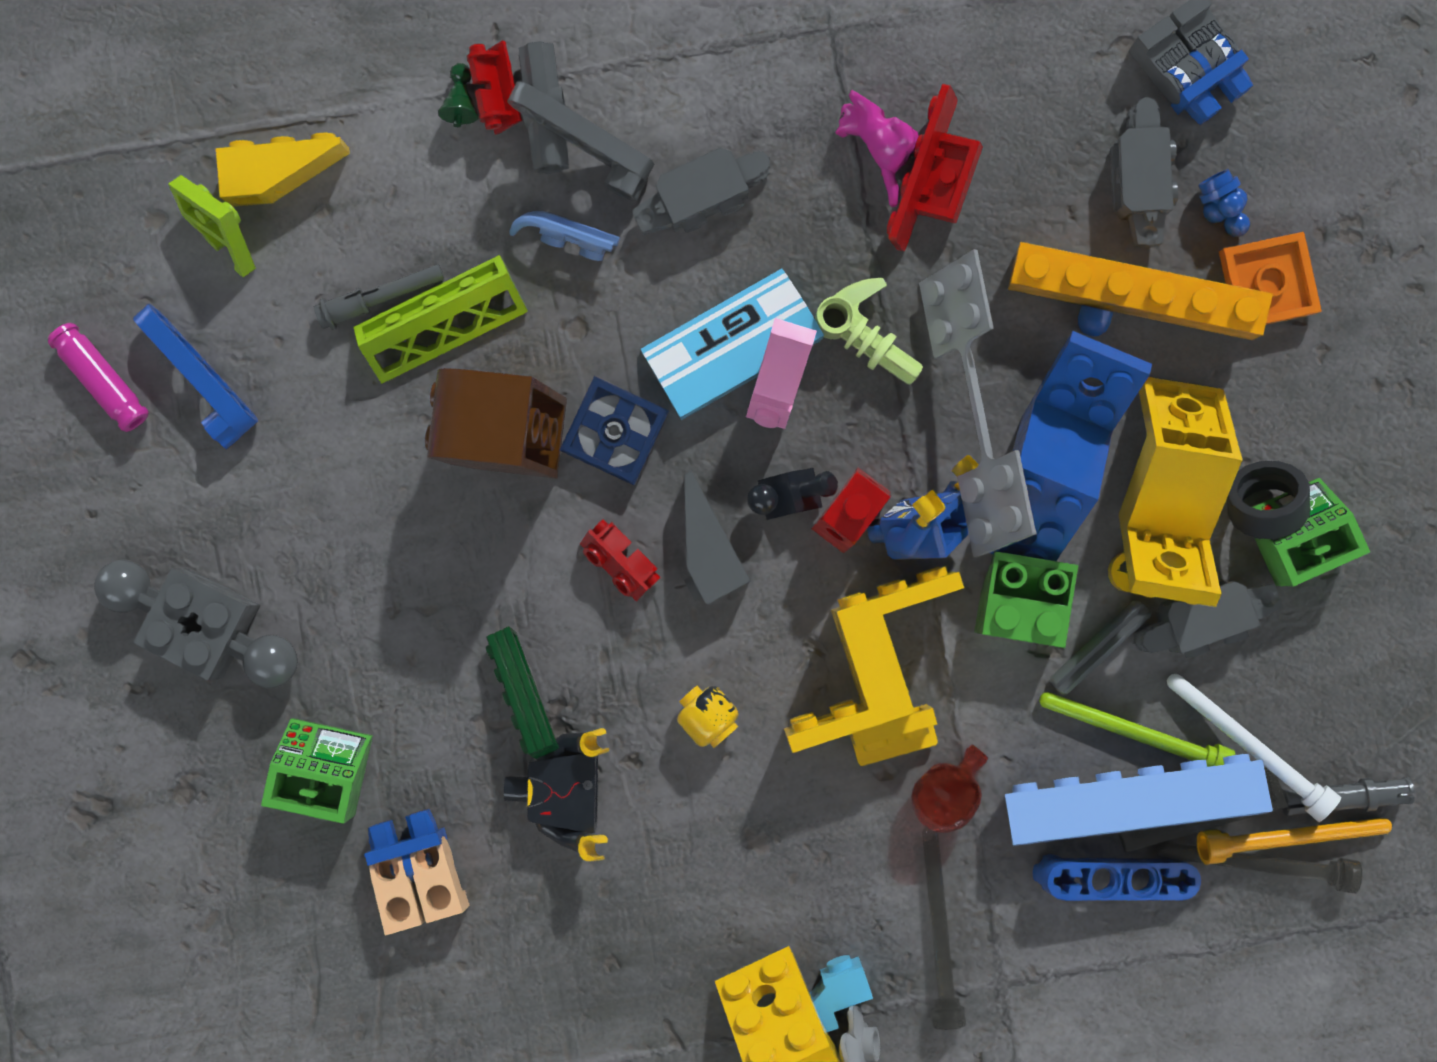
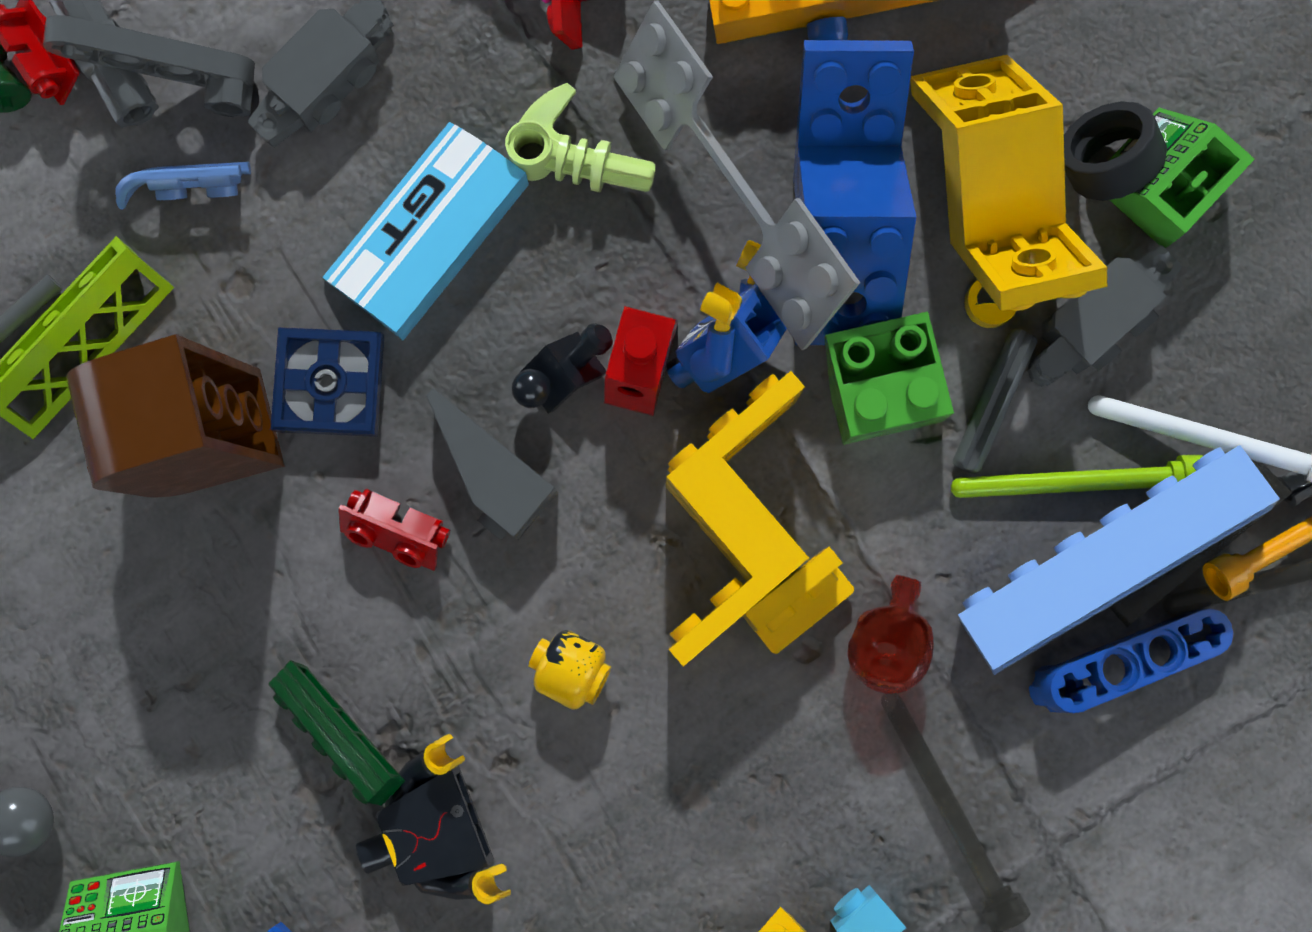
camera: 20 degrees left, 5 degrees down
(780, 374) = (489, 229): bright pink slope -> none

